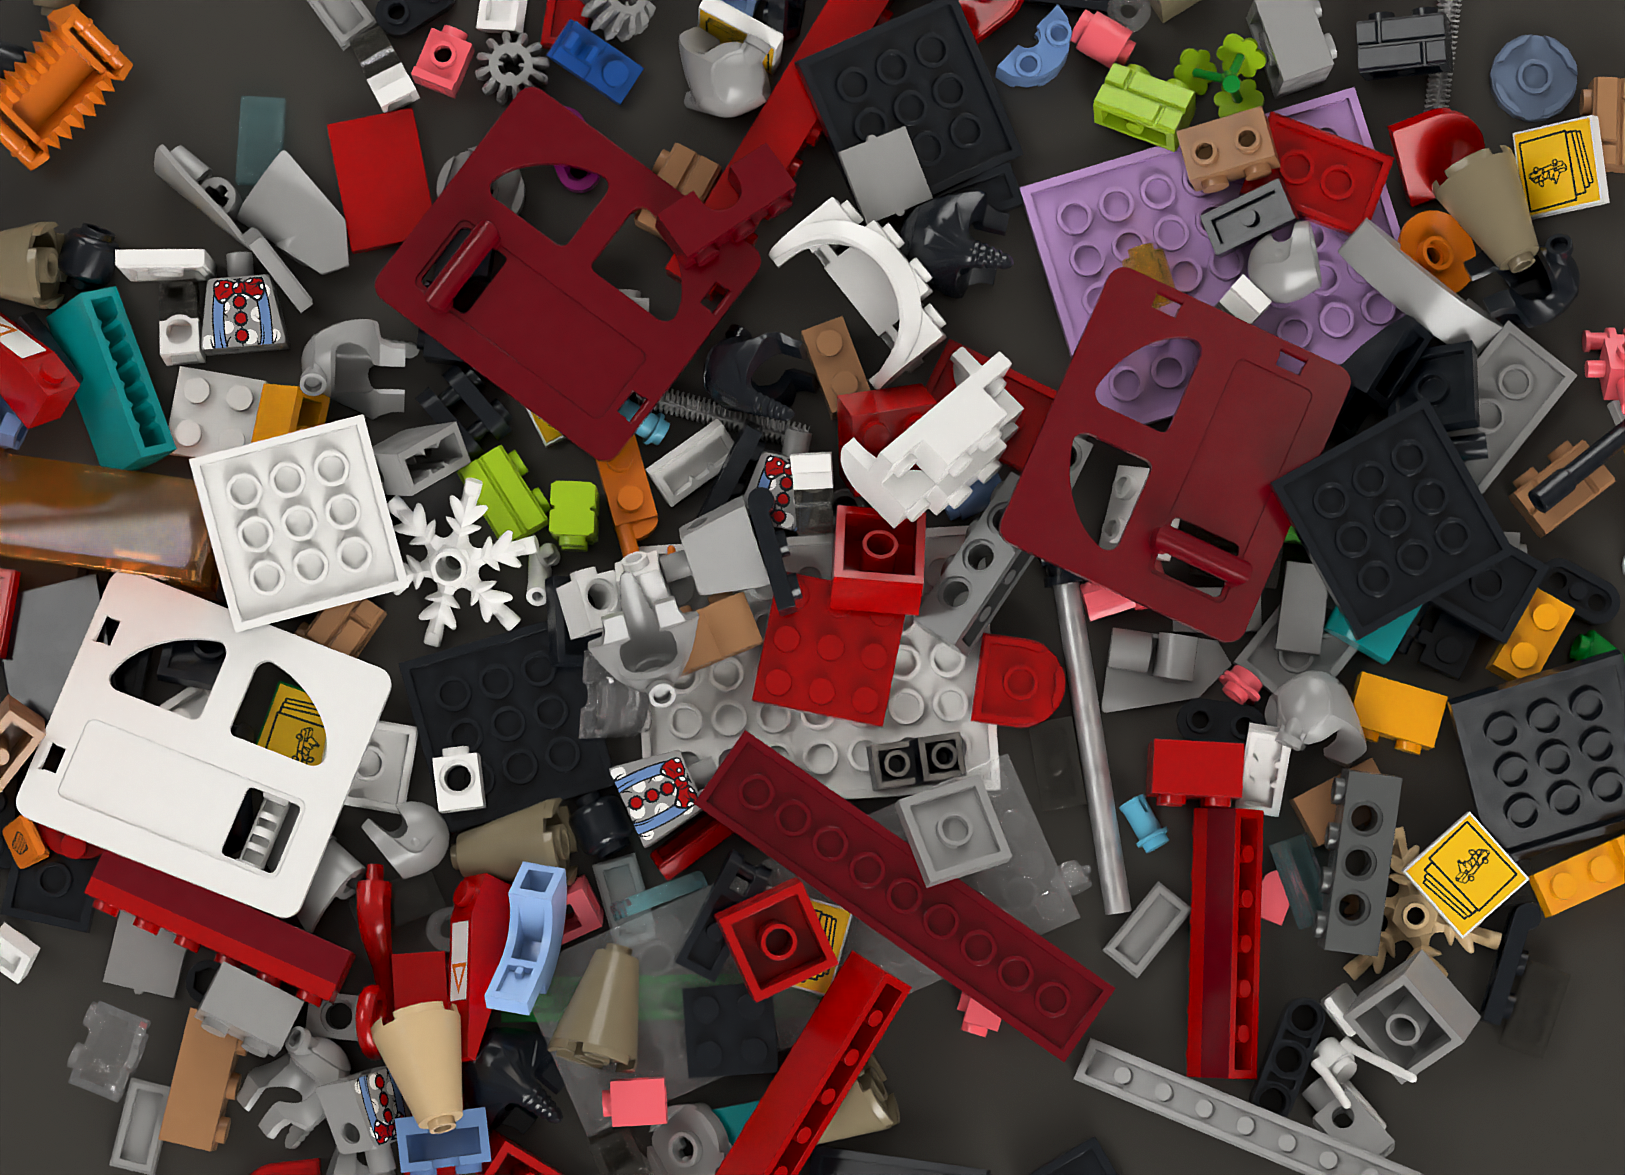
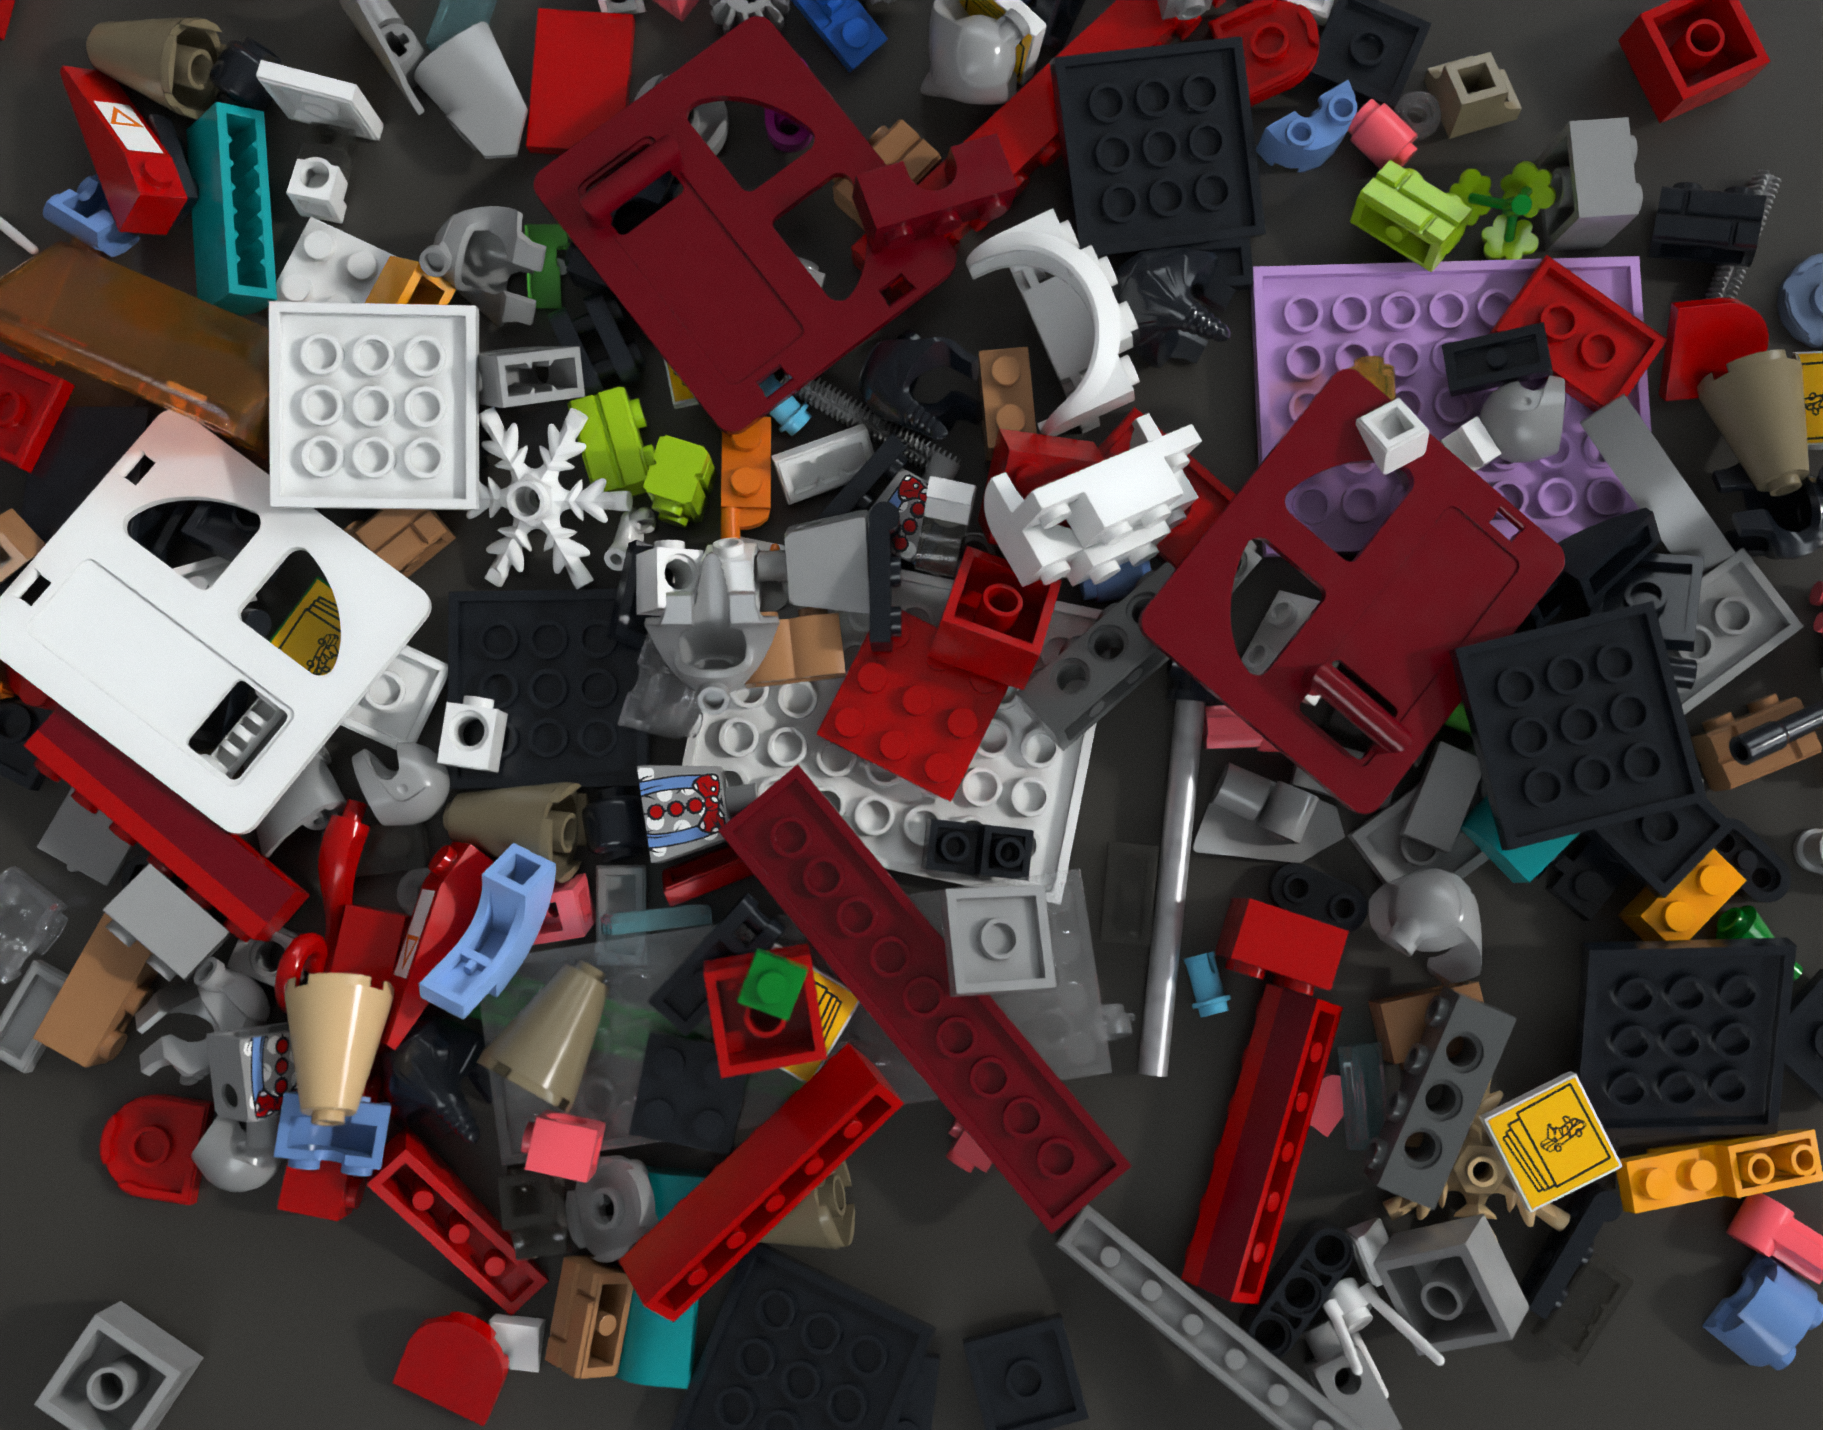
camera: 10 degrees right, 0 degrees up
(242, 311) = (391, 177): torso -> none
(277, 269) = (438, 138): light grey tile -> none
(395, 331) = (546, 284): none -> bright green piece
(777, 913) = (772, 984): none -> green plate
(885, 175) = (1115, 208): light grey piece -> none
(1016, 682) = (1109, 793): red tile -> none
(1147, 929) = (1178, 1100): light grey tile -> none
(1172, 315) = (1393, 435): none -> white slope
(1228, 150) = (1495, 280): medium nougat brick -> none
(1241, 685) = (1352, 863): coral plate -> none
(1263, 770) = (1360, 961): white plate -> none
(1398, 712) = (1521, 940): light orange brick -> none
(1444, 241) = (1690, 446): orange dish -> none

